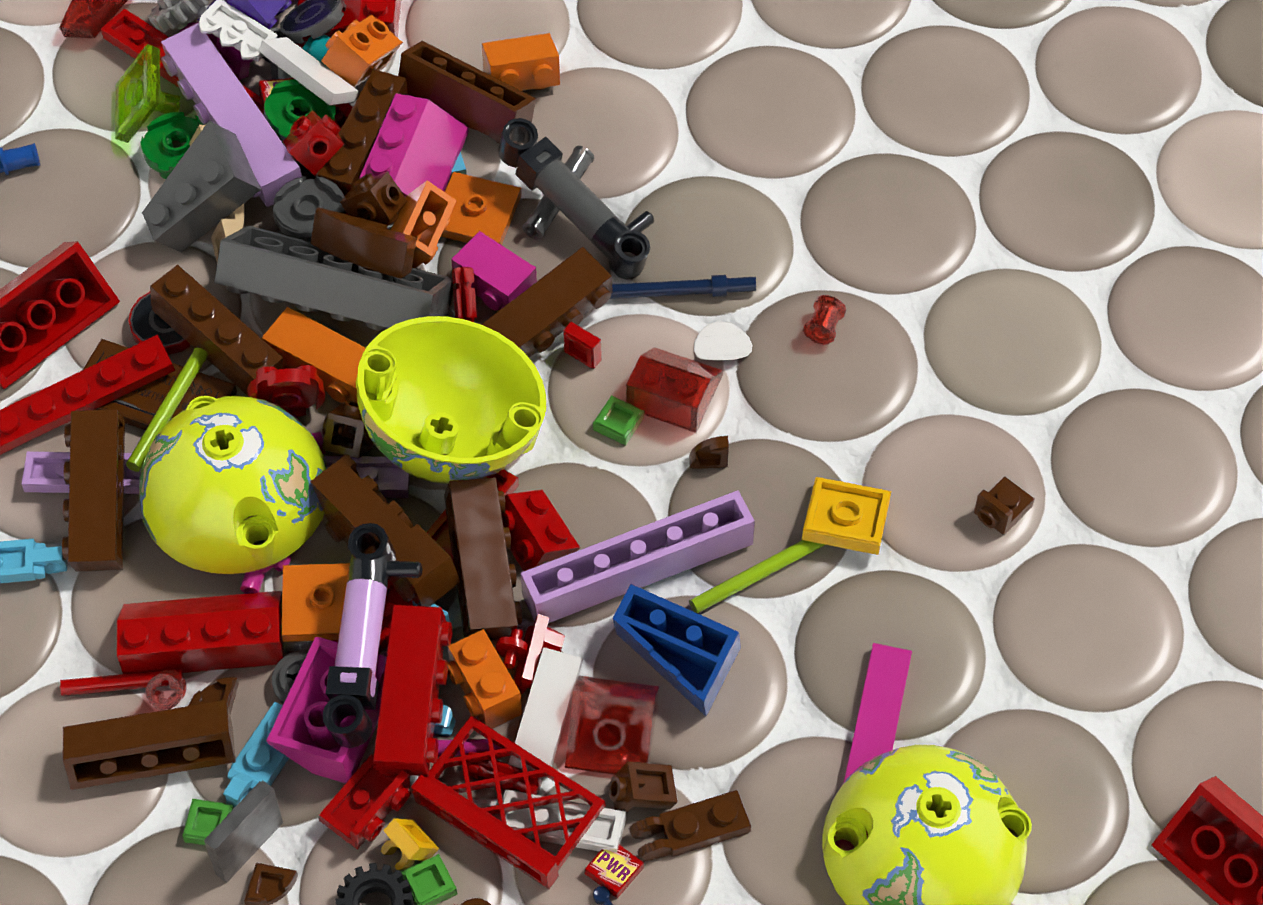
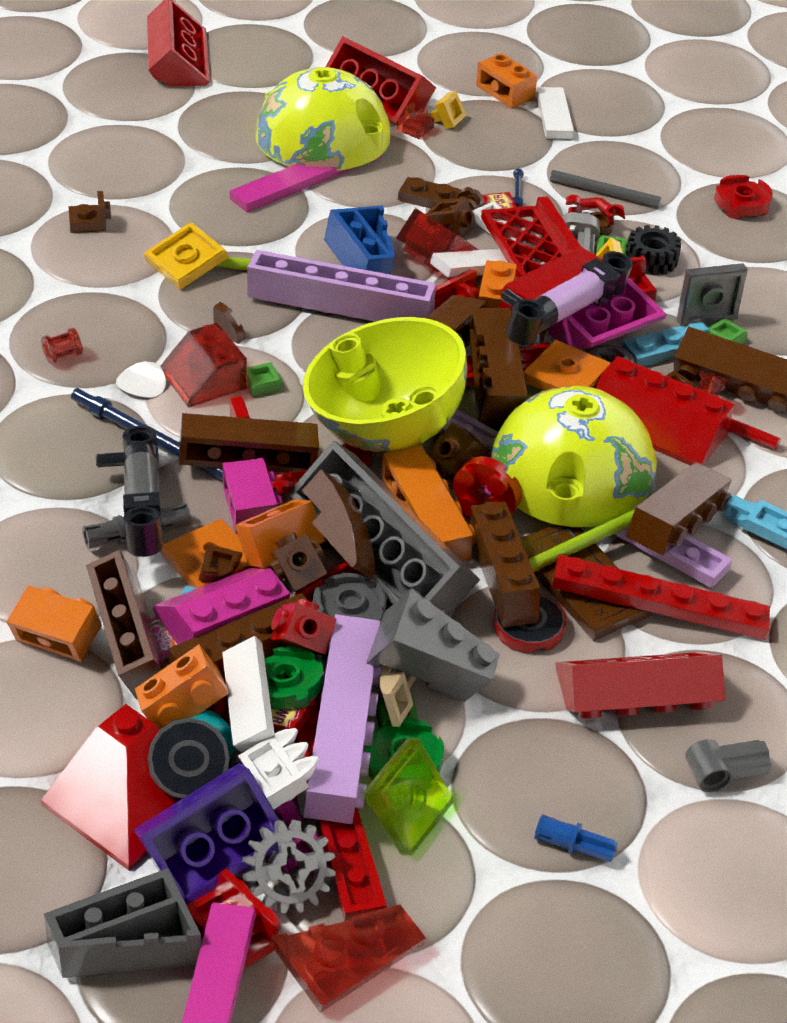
camera: 145 degrees left, 15 degrees down
(456, 186) = (219, 563): none -> reddish brown tile
(473, 877) = (586, 229): none -> light grey piece

